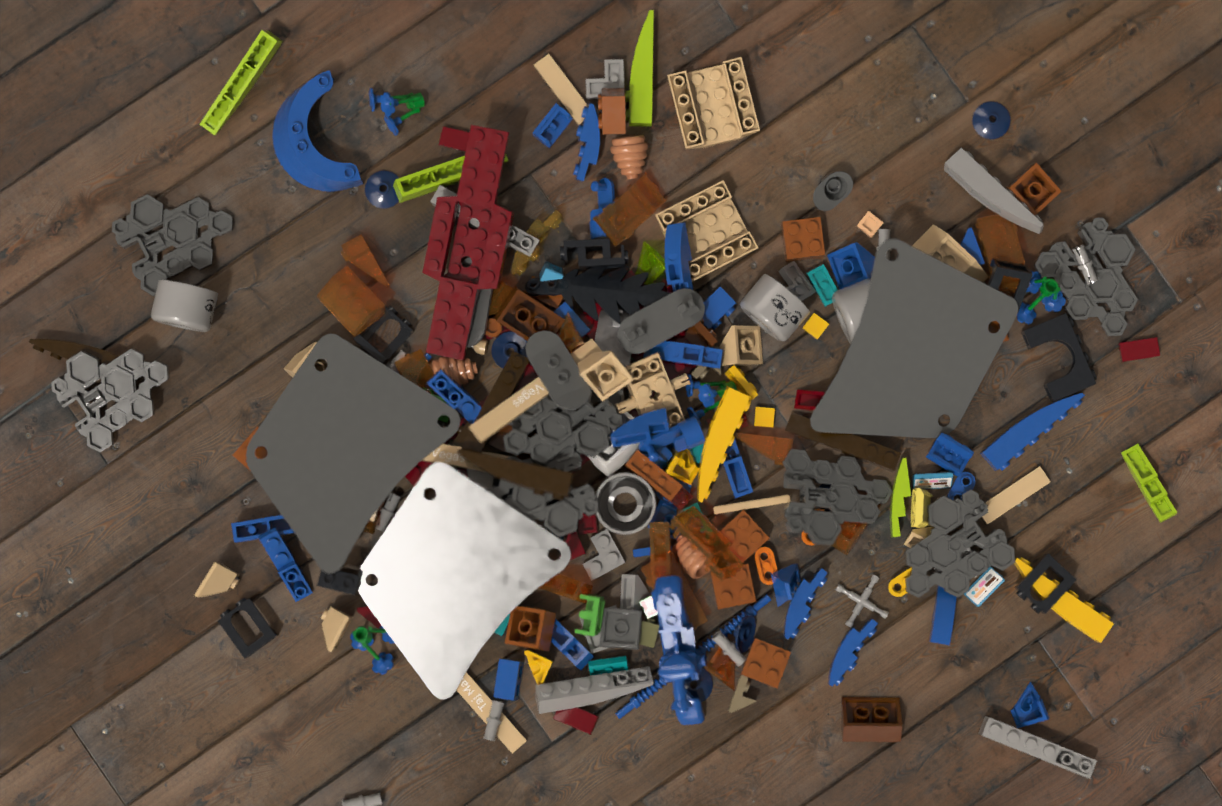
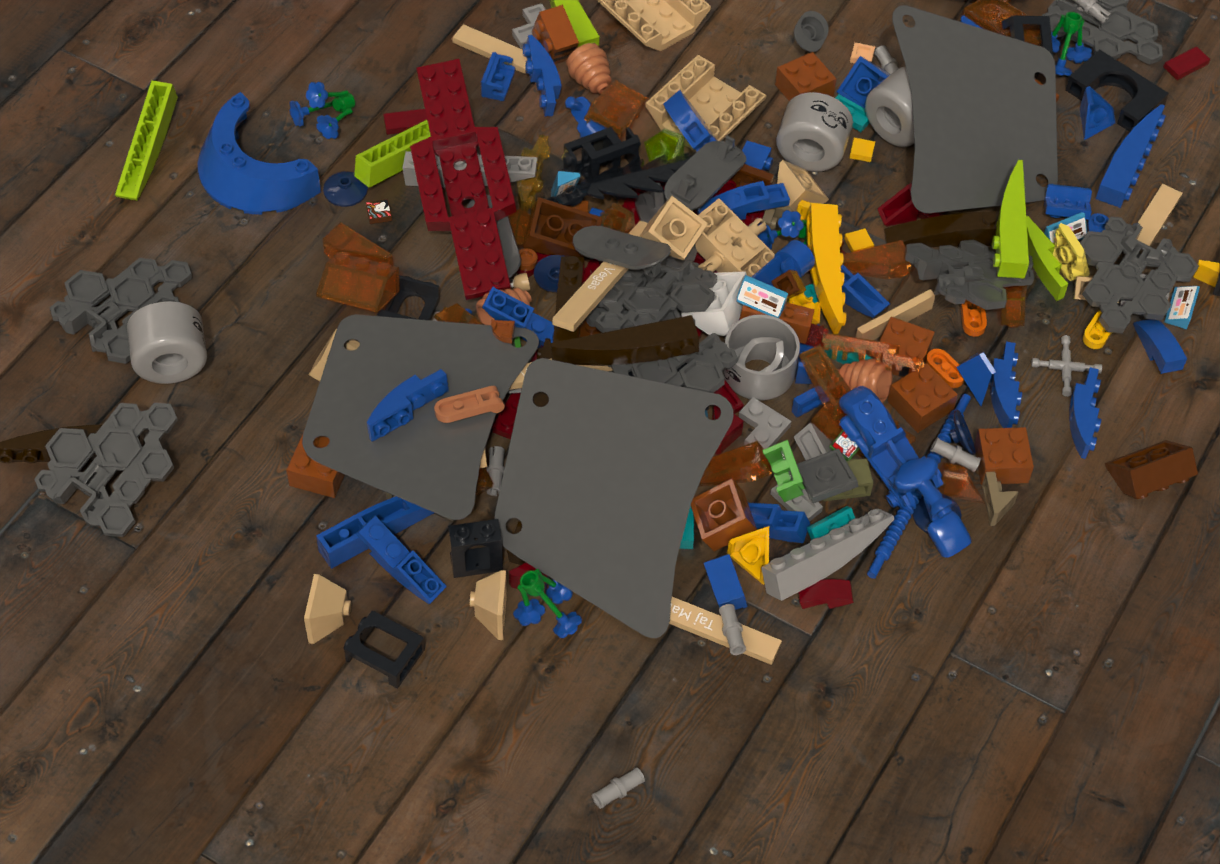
camera: 25 degrees left, 30 degrees down
(323, 452) = (398, 405): none -> blue slope
(377, 472) = (469, 404): none -> nougat plate
(400, 226) = (378, 211): none -> tile
(436, 407) = (503, 330): none -> dark orange tile
(641, 428) = (742, 262): blue slope -> none
(643, 464) = (762, 297): none -> slope
(670, 461) = (790, 283): none -> reddish brown slope
(878, 473) = (1011, 230): none -> lime slope
(1027, 373) = (1095, 113): none -> blue slope

